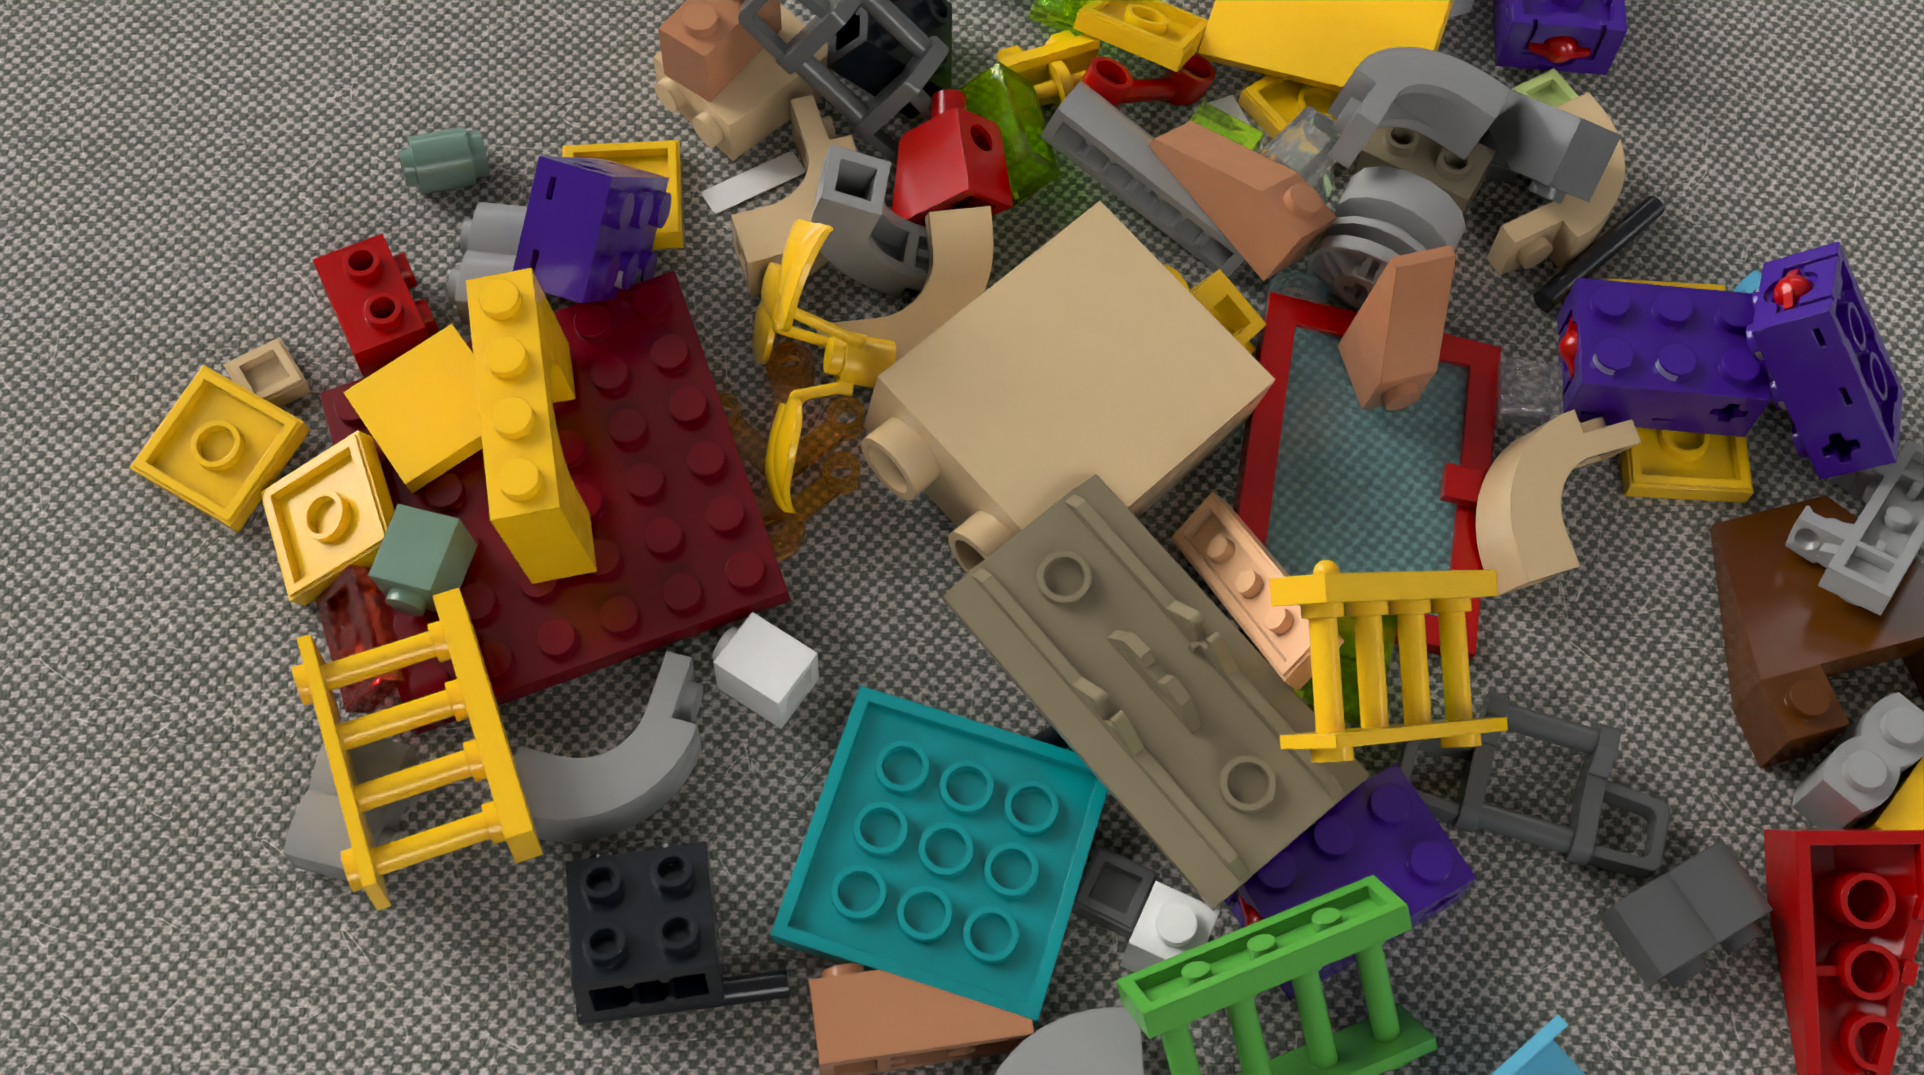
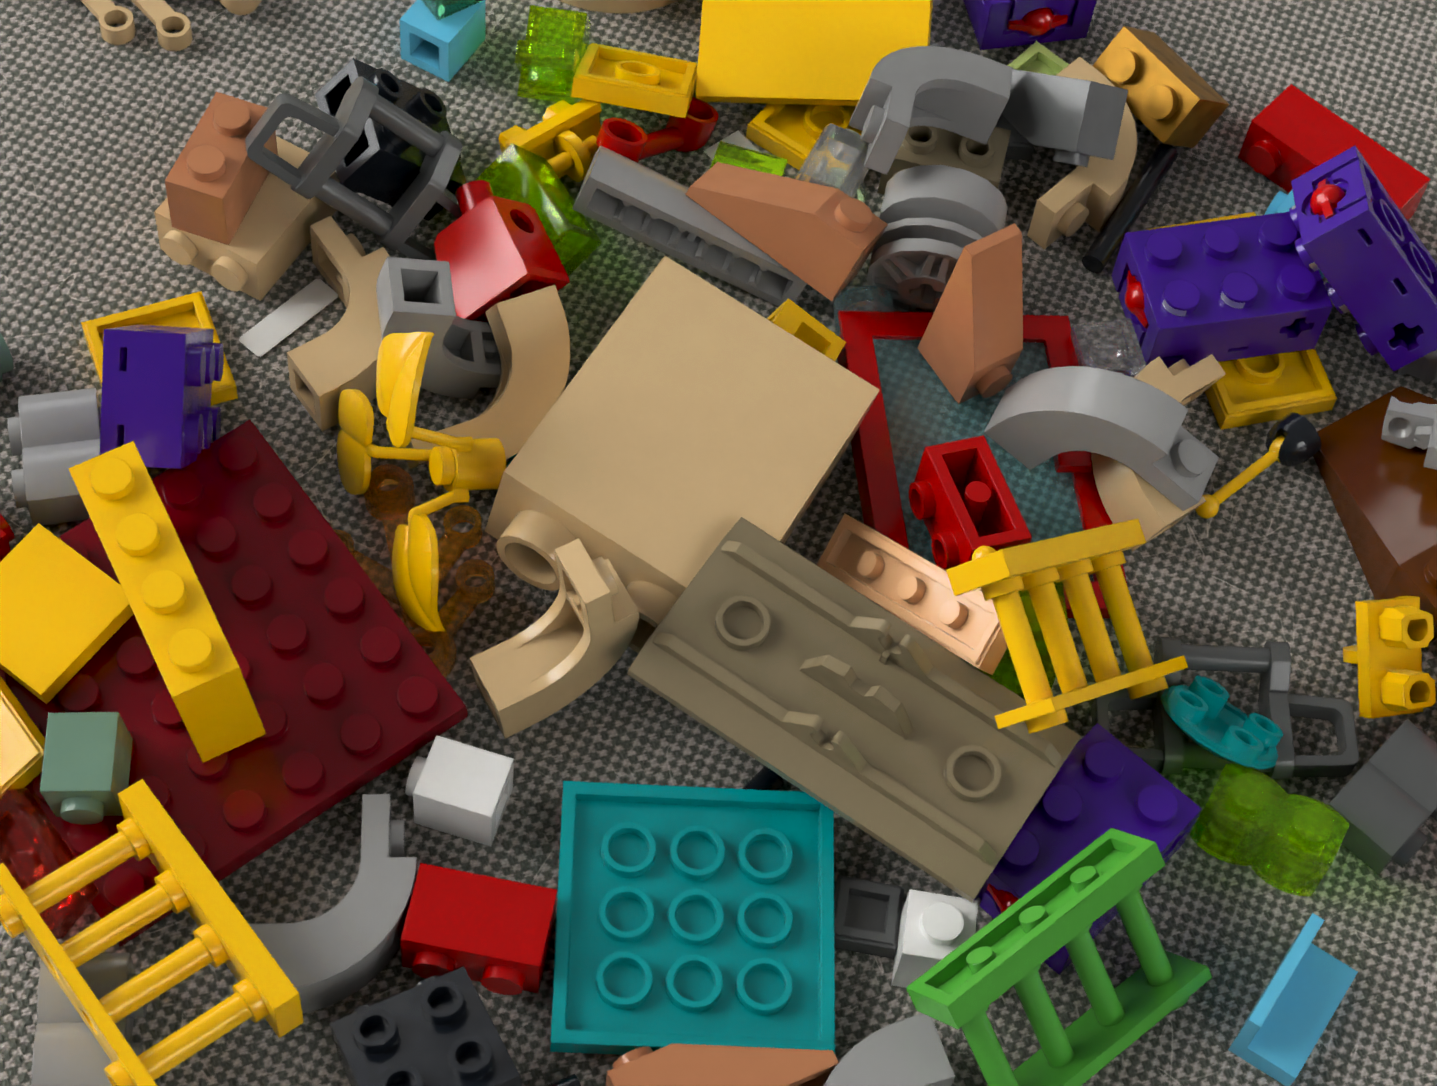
camera: 20 degrees left, 5 degrees down
(737, 807) = (479, 923): none -> red brick
(896, 560) = (563, 649): none -> tan arch
(1330, 511) = (965, 501): none -> red brick
(1502, 460) = (1107, 416): none -> light grey arch
(1524, 797) = (1219, 726): none -> teal dish
(1555, 924) = (1278, 834): none -> clear neon green brick
(1664, 140) = (1161, 87): none -> pearl gold brick
(1688, 526) = (1288, 442): none -> hinge
(1725, 771) = (1391, 657): none -> yellow hips
(1799, 215) = (1302, 134): none -> red brick

